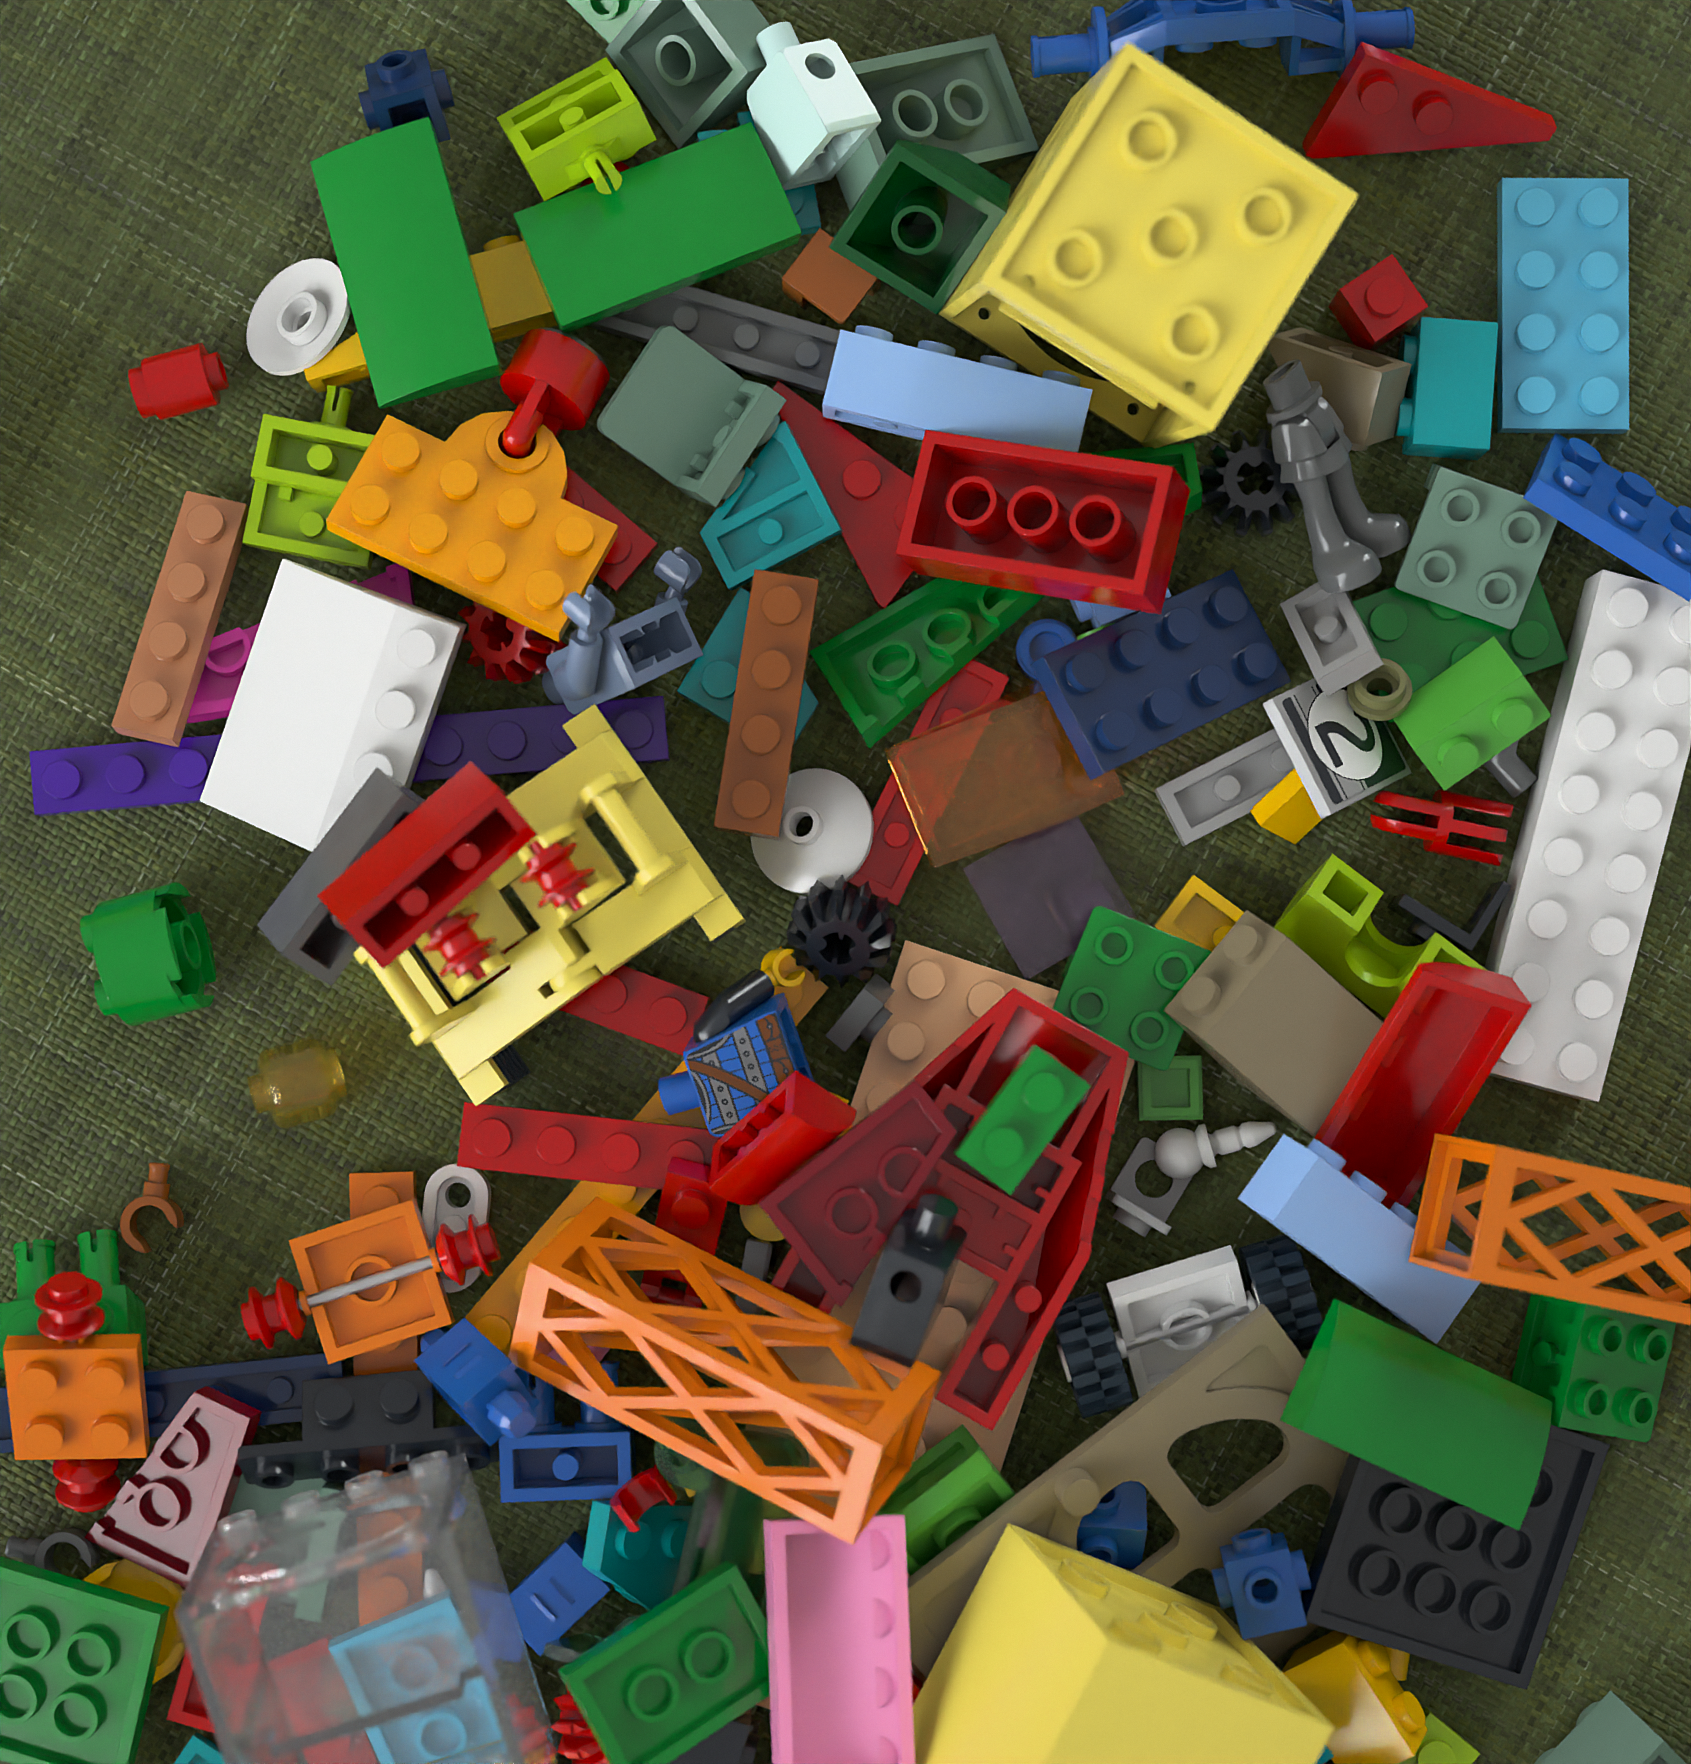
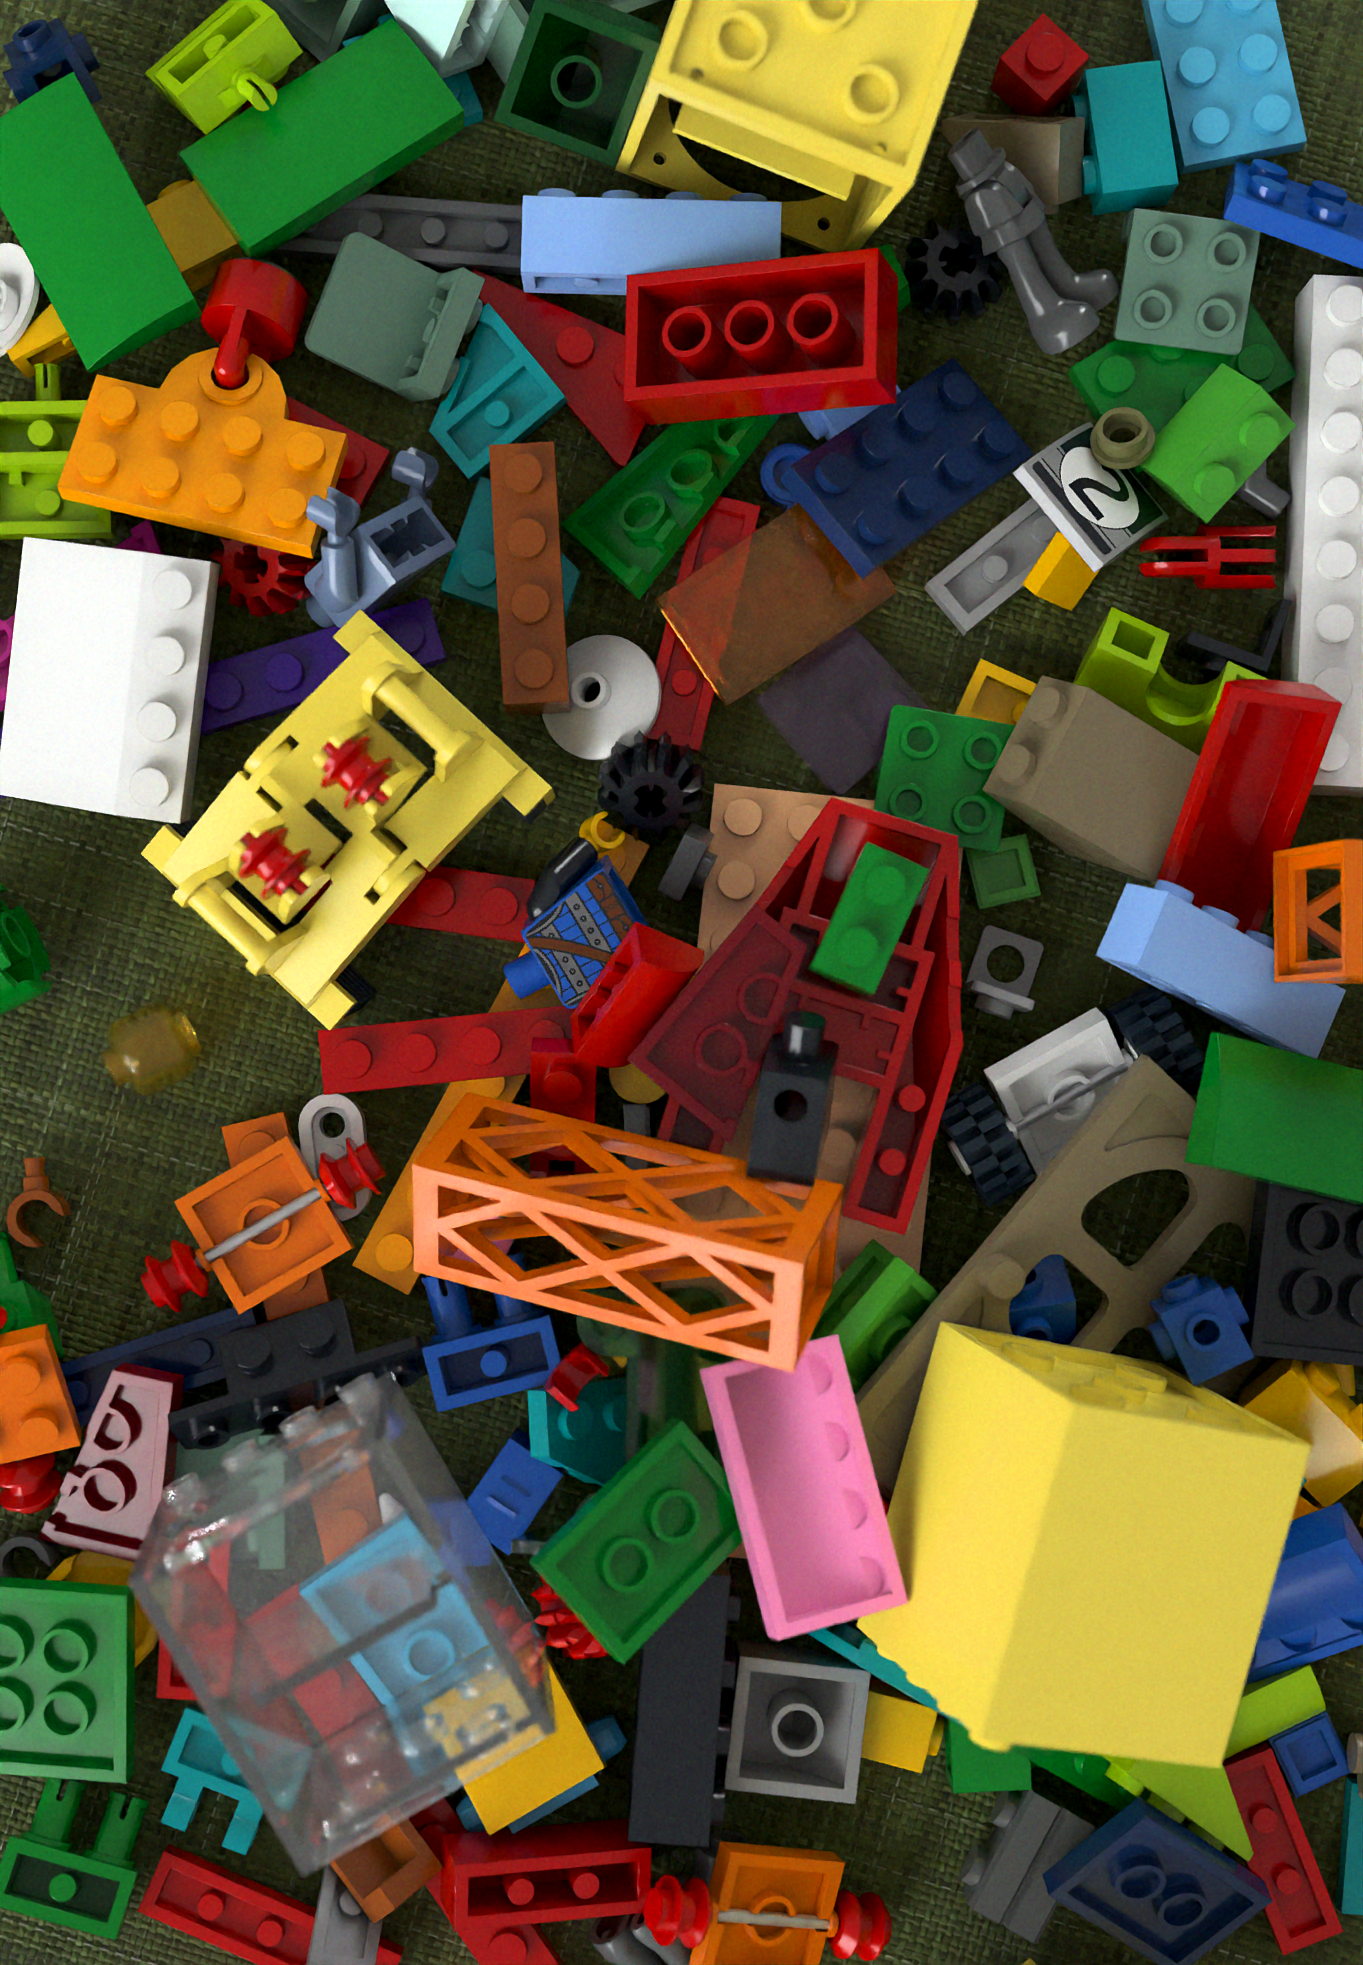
camera: 20 degrees left, 0 degrees up
(298, 919) = (157, 825): dark grey brick -> none
(427, 865) = (225, 790): red brick -> none
(477, 1382) = (389, 1298): blue piece -> none
(828, 280) = (500, 157): dark orange panel -> none
(1183, 1152) = (1029, 930): white bar -> none
(1331, 637) = (1065, 397): light grey plate -> none

